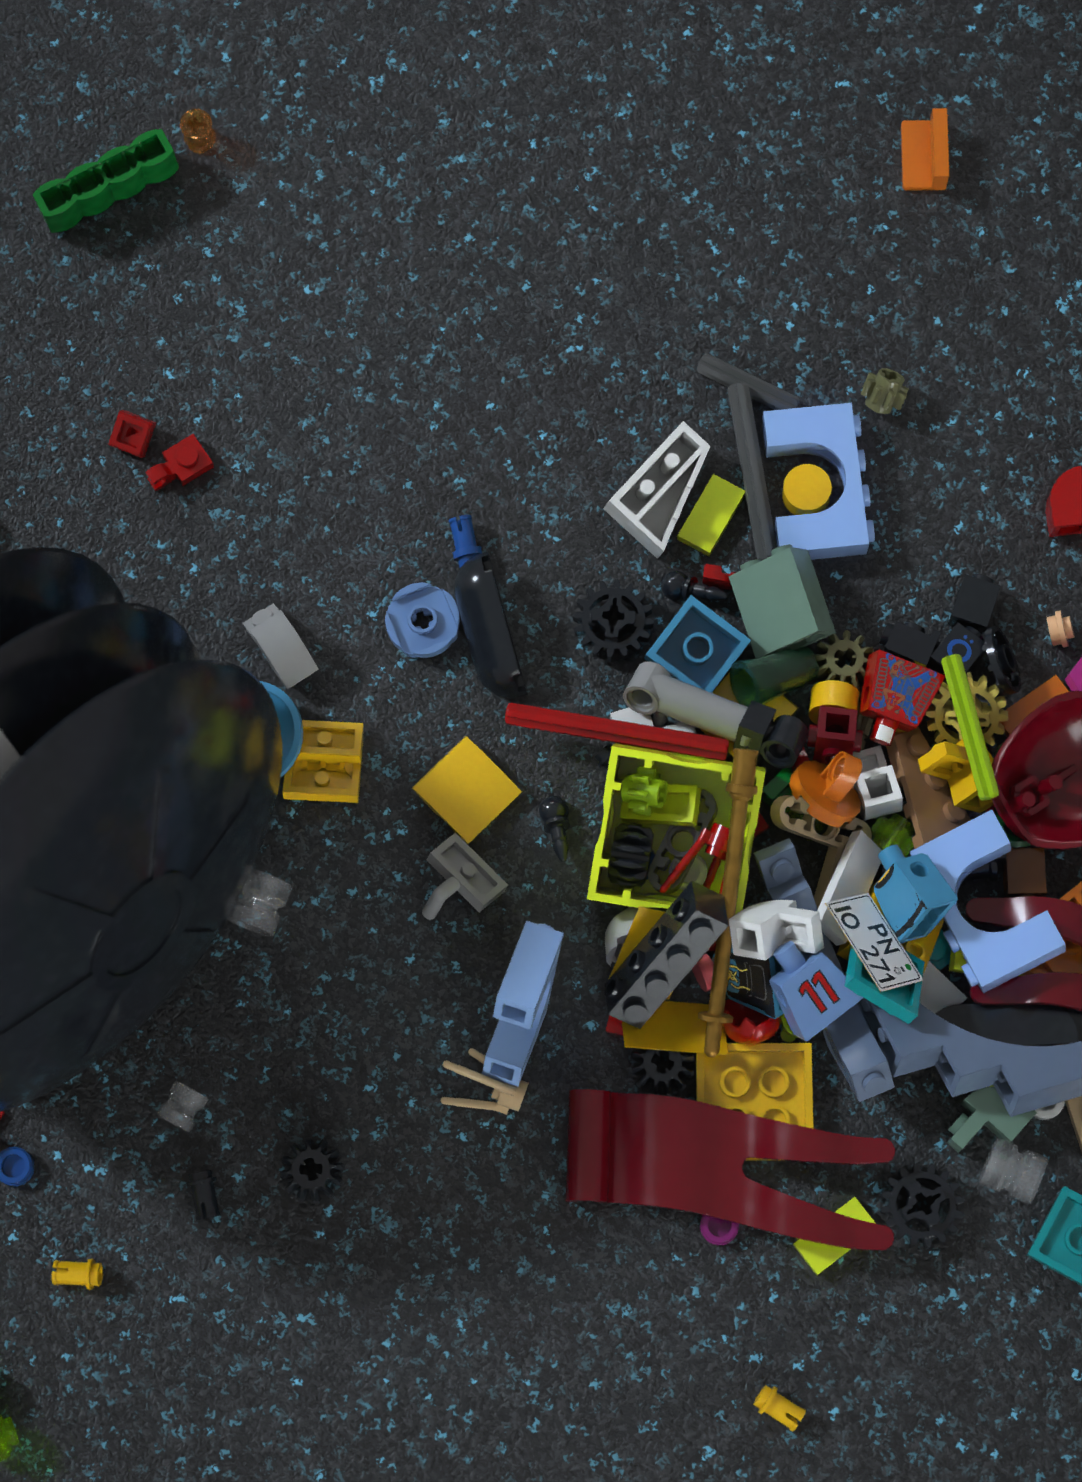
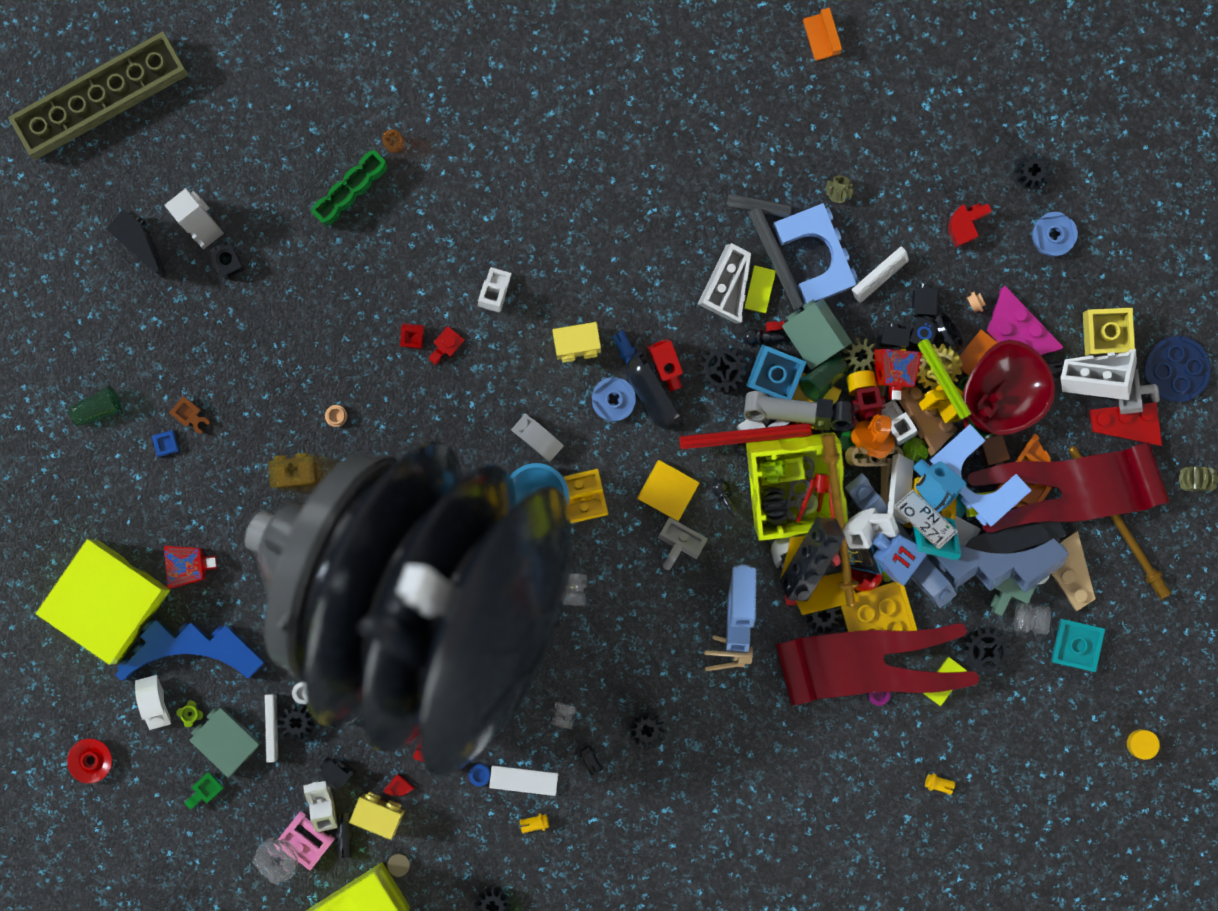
camera: 25 degrees left, 10 degrees up
(83, 1196) = (523, 780): none -> white tile
(282, 396) = (494, 290): none -> white brick
(389, 509) = (577, 341): none -> light yellow brick
(523, 568) = (662, 354): none -> red torso
(806, 490) = (810, 260): yellow piece -> none
(913, 542) = (880, 274): none -> white tile

